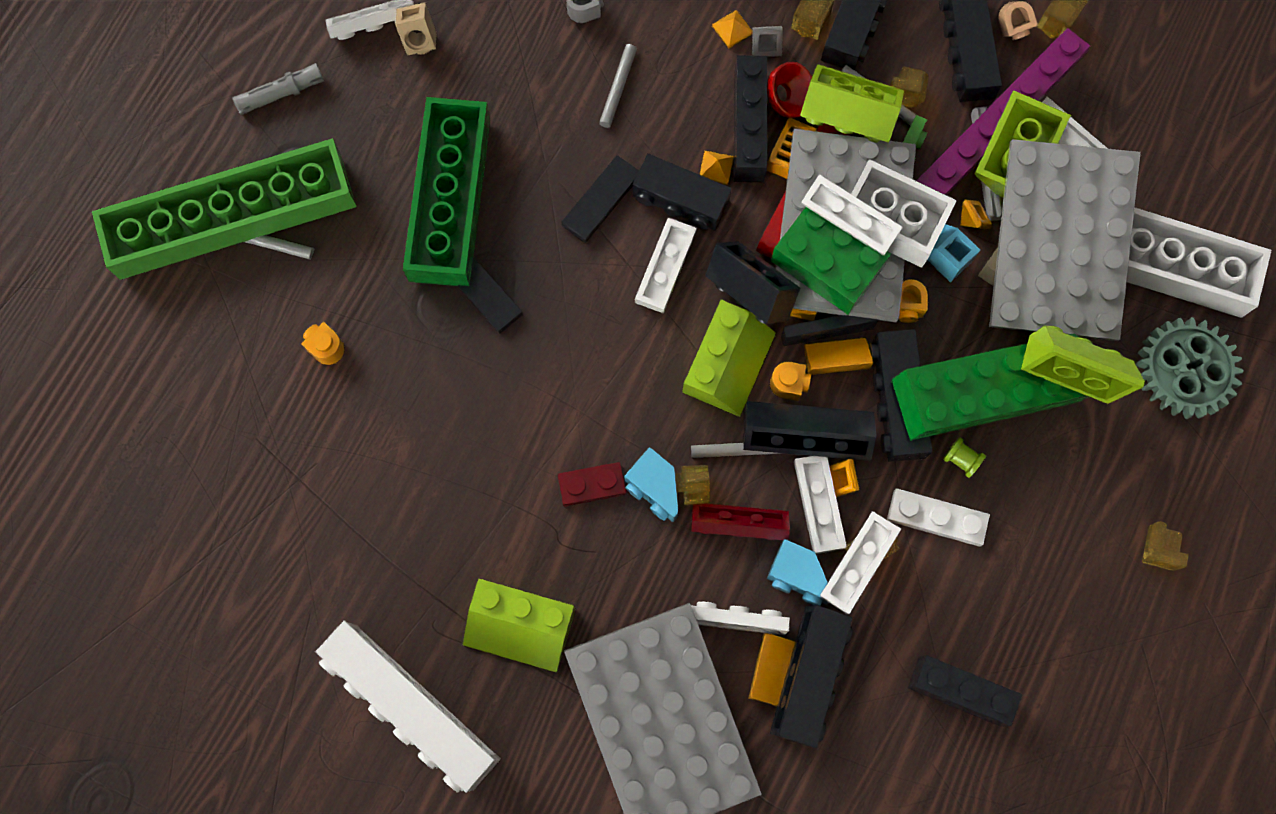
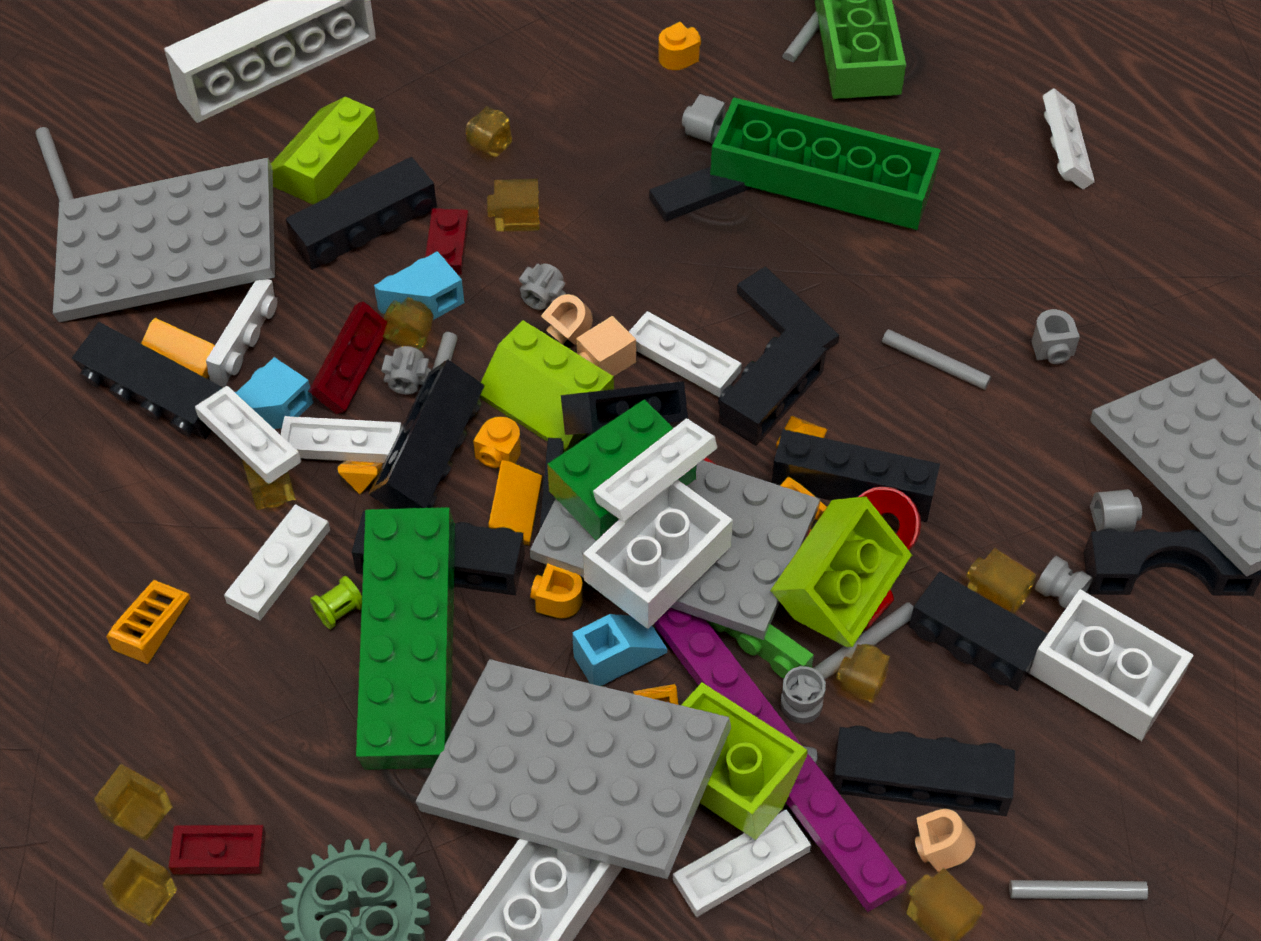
camera: 105 degrees right, 20 degrees down
(289, 84) = (994, 61): light grey pin -> none
(410, 301) = (704, 118): none -> light grey plate
(416, 18) = (1040, 167): tan brick -> none
(465, 480) = (489, 132): none -> clear yellow plate
(545, 433) = (515, 205): none -> clear yellow brick
(585, 561) = (361, 213): none -> black brick
(630, 386) = (541, 285): none -> light grey gear
(659, 357) = (568, 318): none -> light nougat plate
(681, 322) = (608, 346): none -> light nougat brick
(732, 29) = (997, 498): light orange slope -> none
(743, 470) = (405, 369): none -> light grey gear
(767, 41) = (967, 524): light grey slope -> none
(943, 117) = (808, 687): none -> light grey wheel
(965, 691) = (64, 522): black brick -> none
(1047, 598) = (144, 648): none -> light orange slope
(1080, 365) = (388, 706): lime slope -> none
(1177, 476) = (217, 849): none -> dark red plate
(1222, 517) = (139, 886): none -> clear yellow panel

